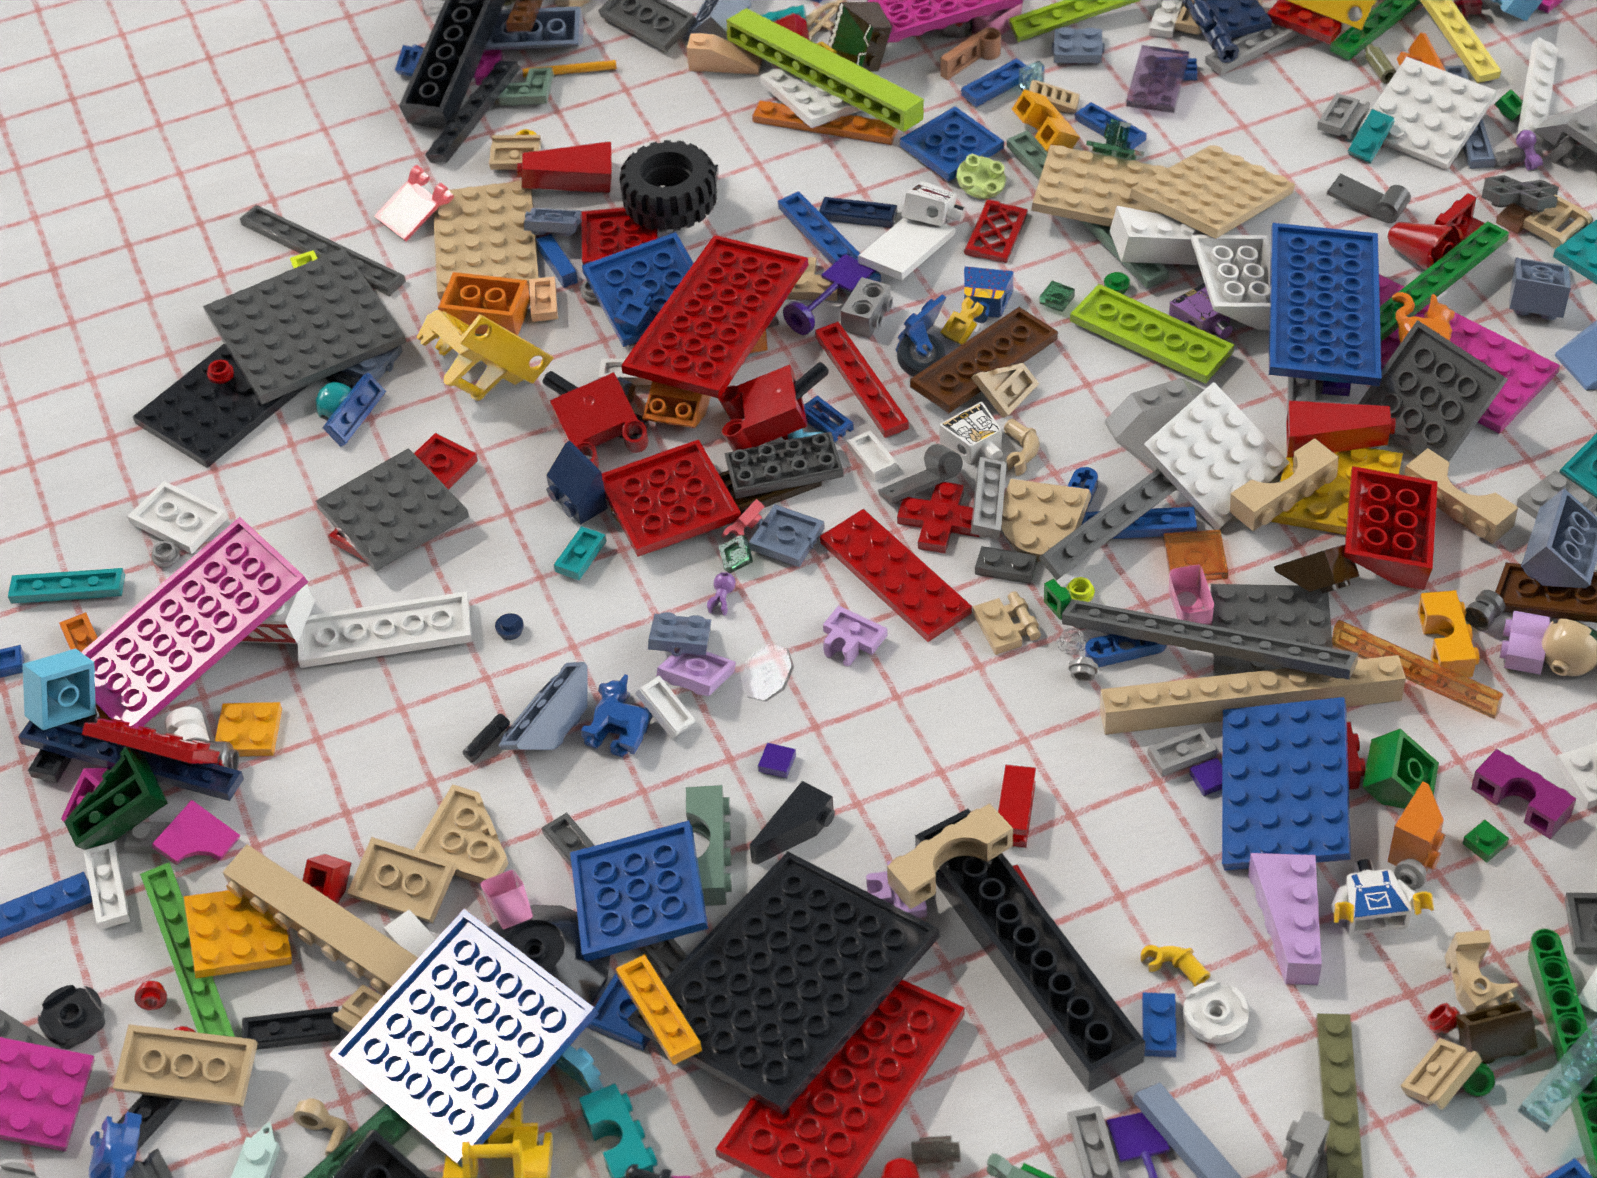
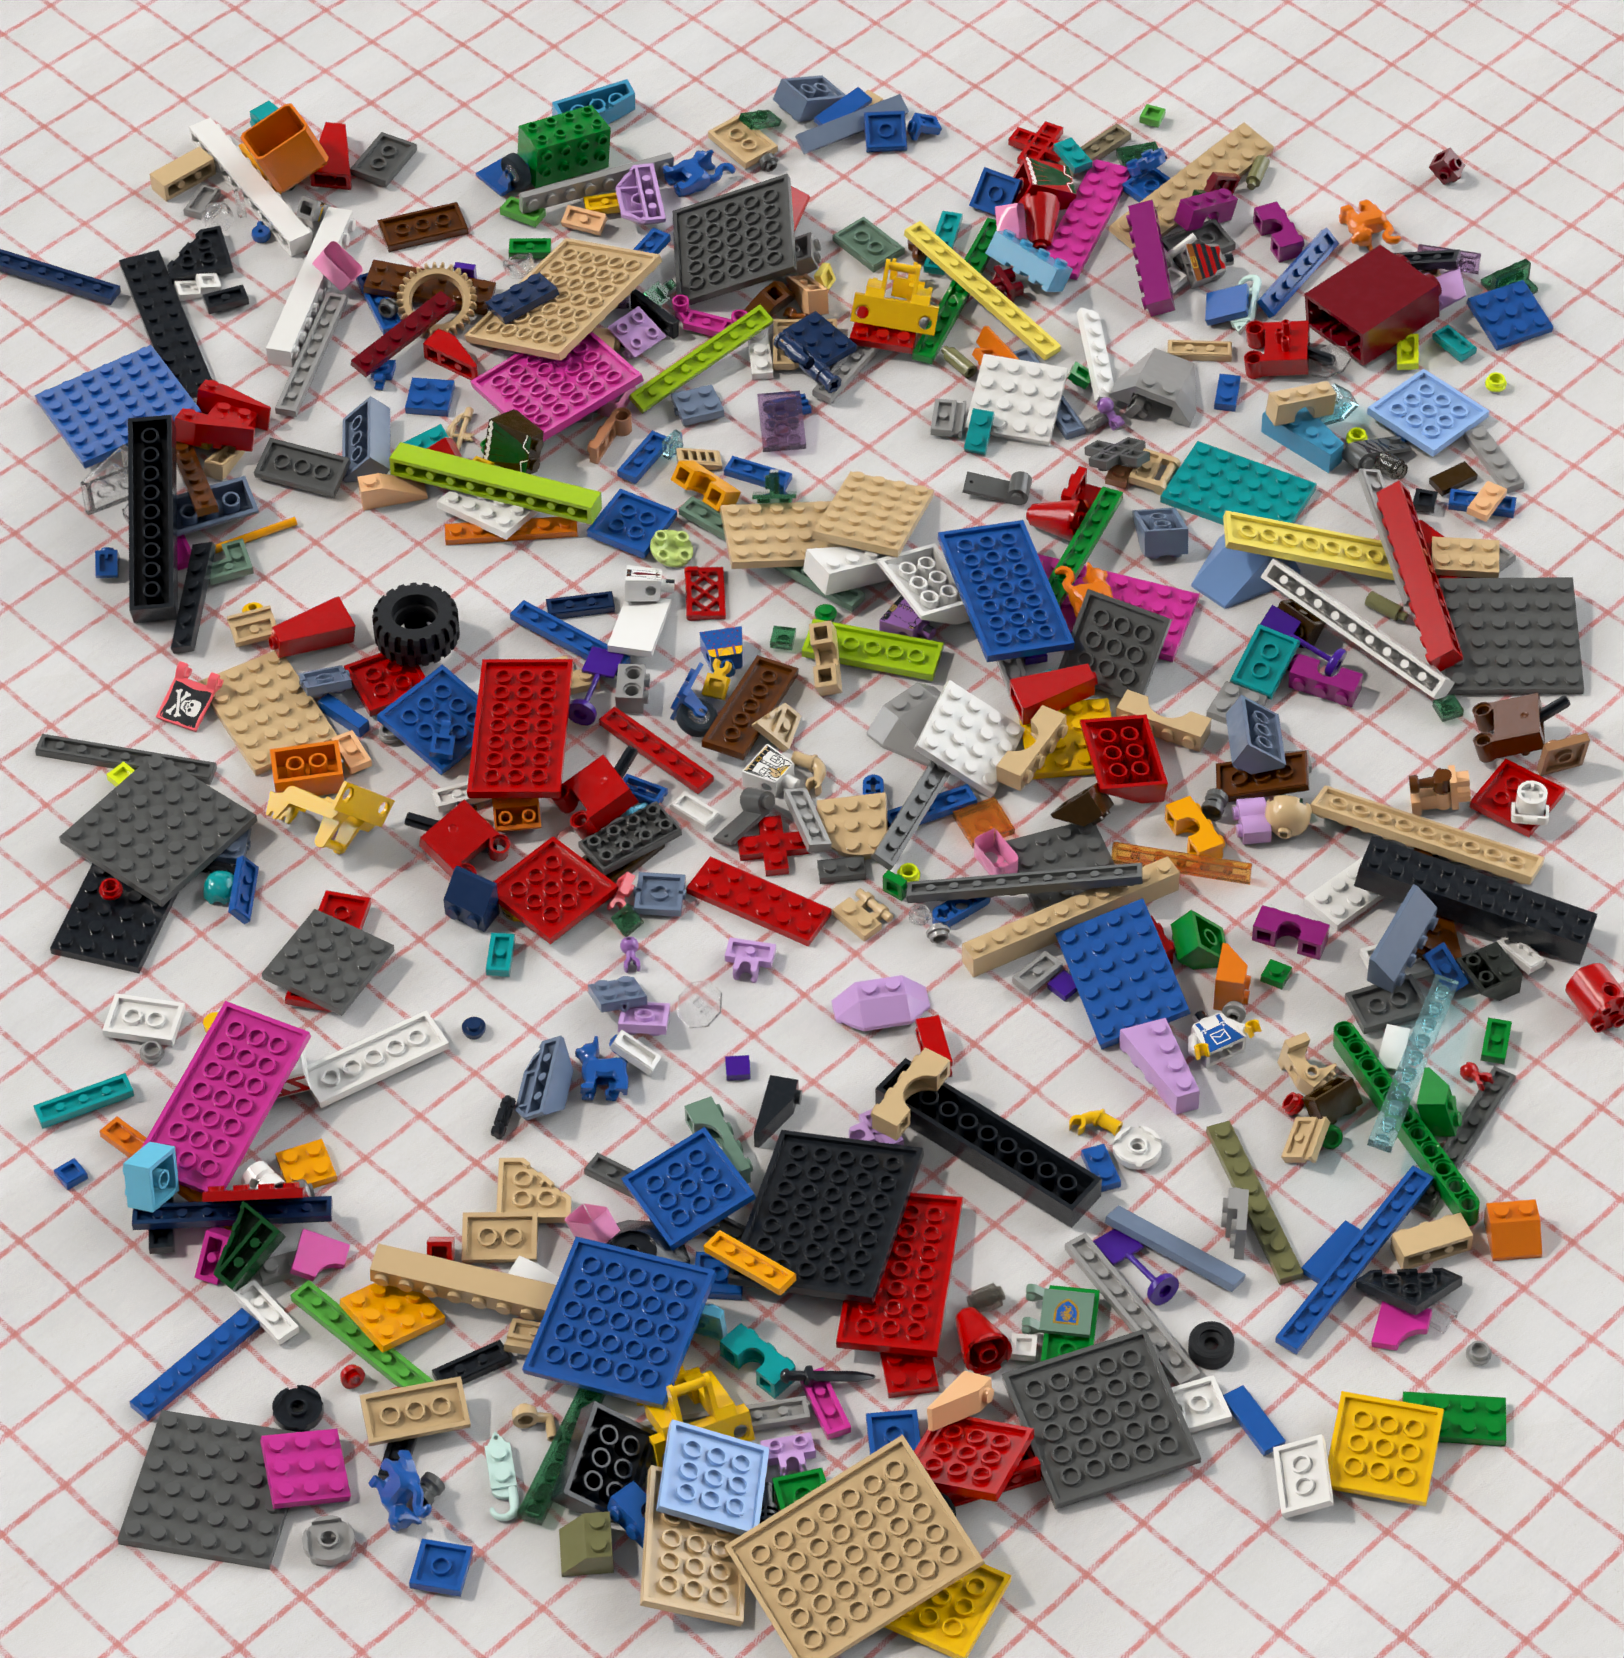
camera: 25 degrees left, 0 degrees up
(979, 733) = (881, 1003): none -> lavender wedge
(1086, 344) = (827, 669): none -> tan arch

